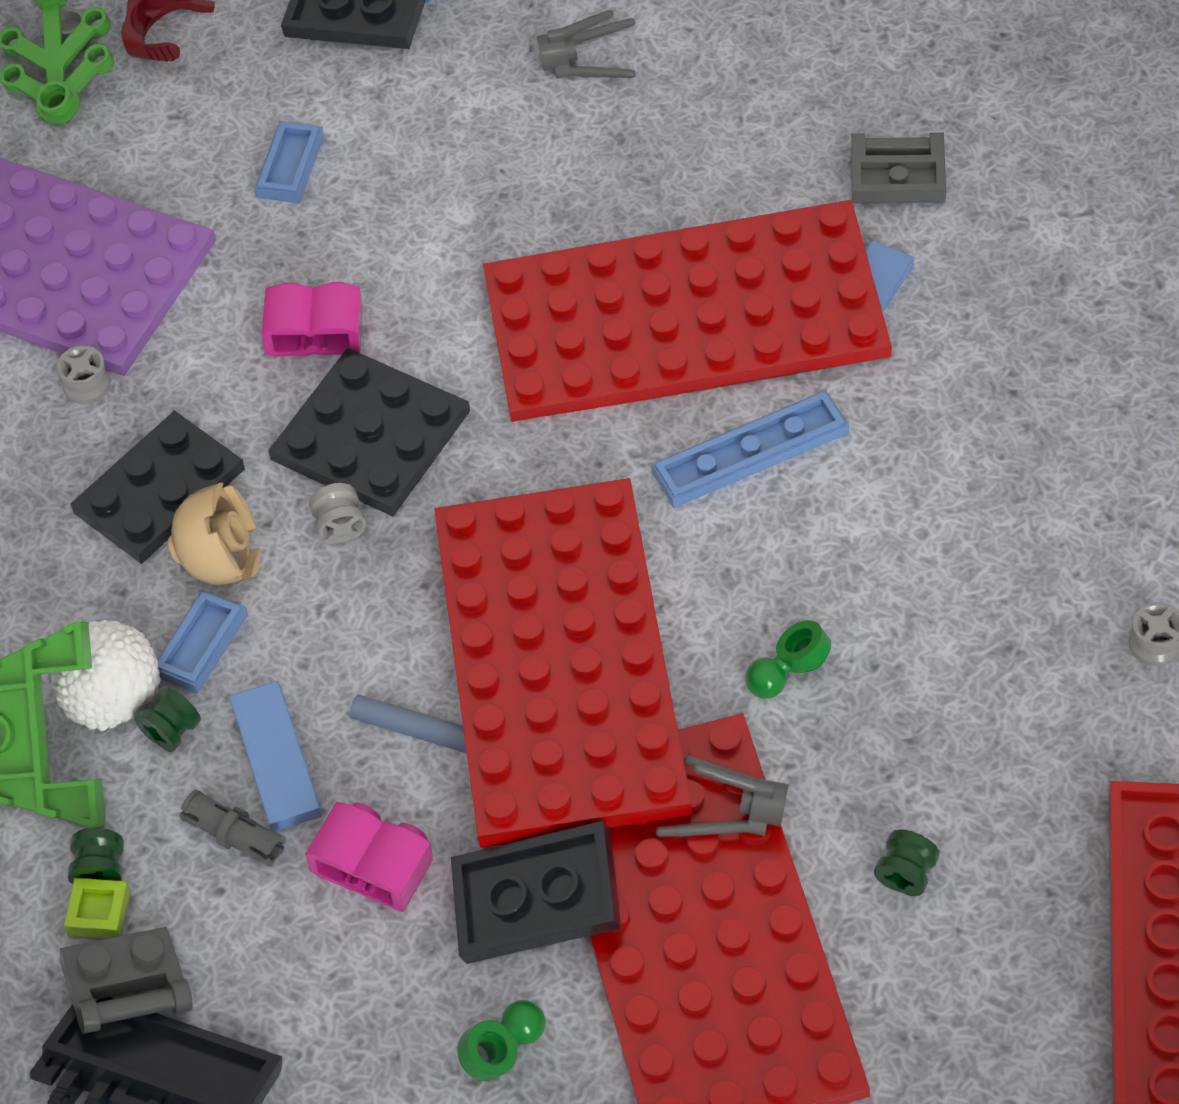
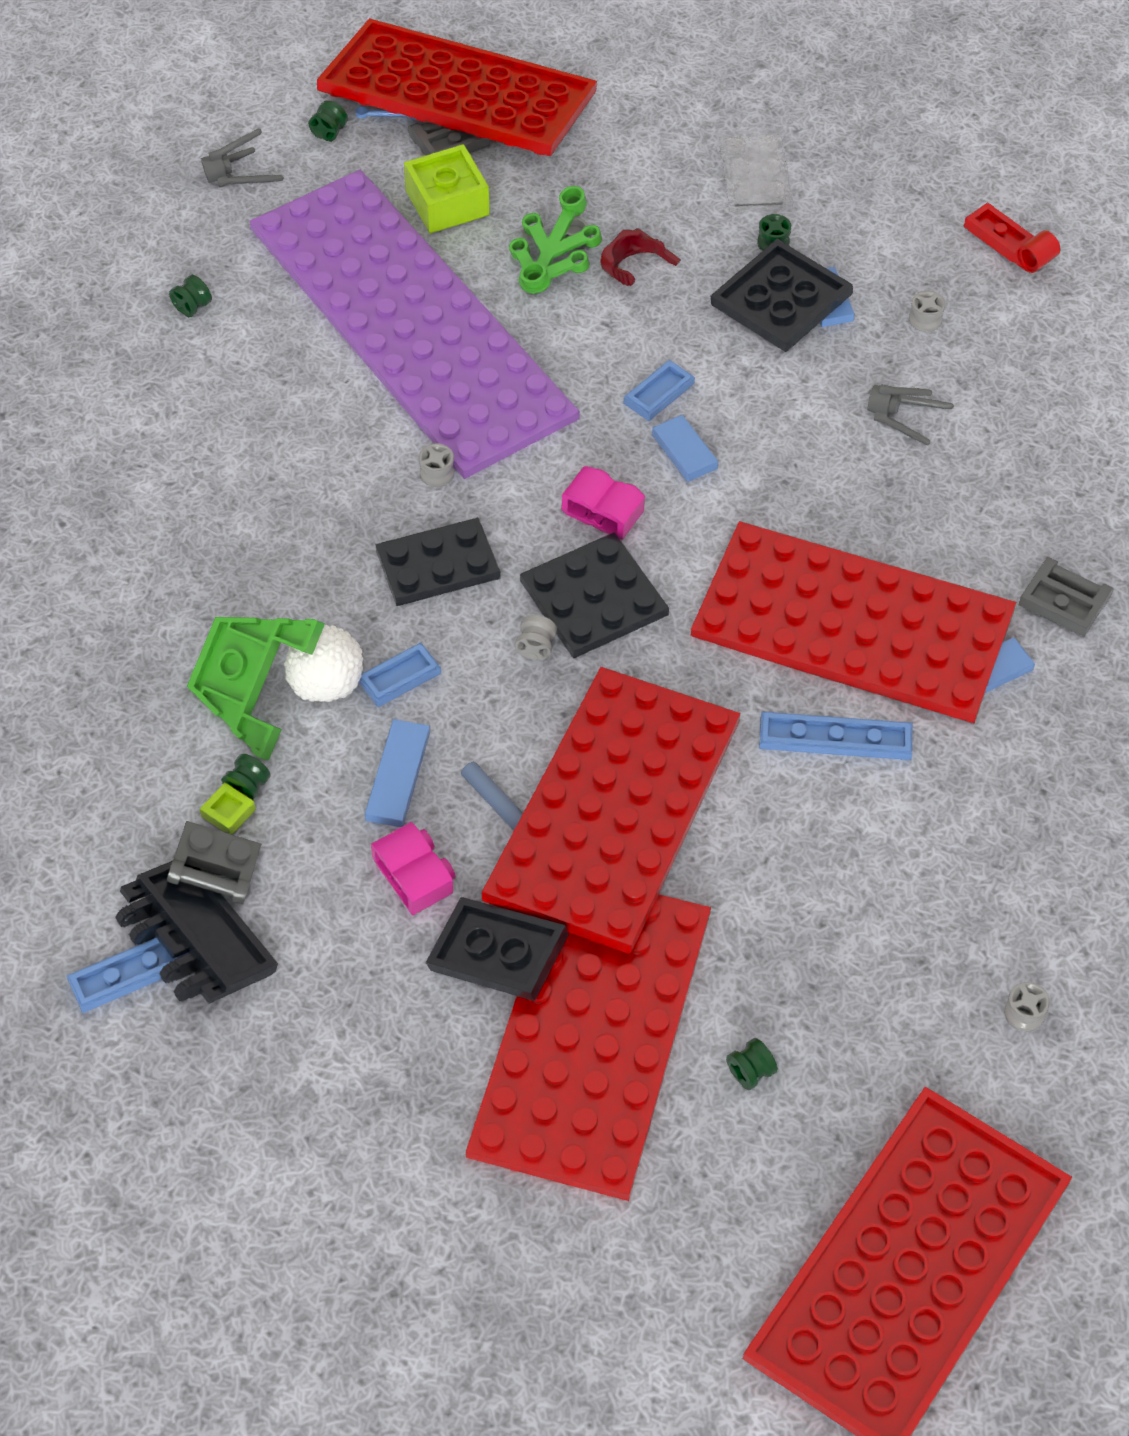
camera: 25 degrees right, 0 degrees up
(167, 719) = (345, 713): dark green wheel -> none
(207, 532) = (448, 605): tan cylinder -> none
(232, 827) = (341, 804): dark grey pin -> none
(363, 212) = (685, 448): none -> medium blue tile
(520, 1024) = (438, 1027): green plate -> none
(760, 799) = (678, 968): dark grey plant -> none
(798, 650) = (775, 886): green plate -> none

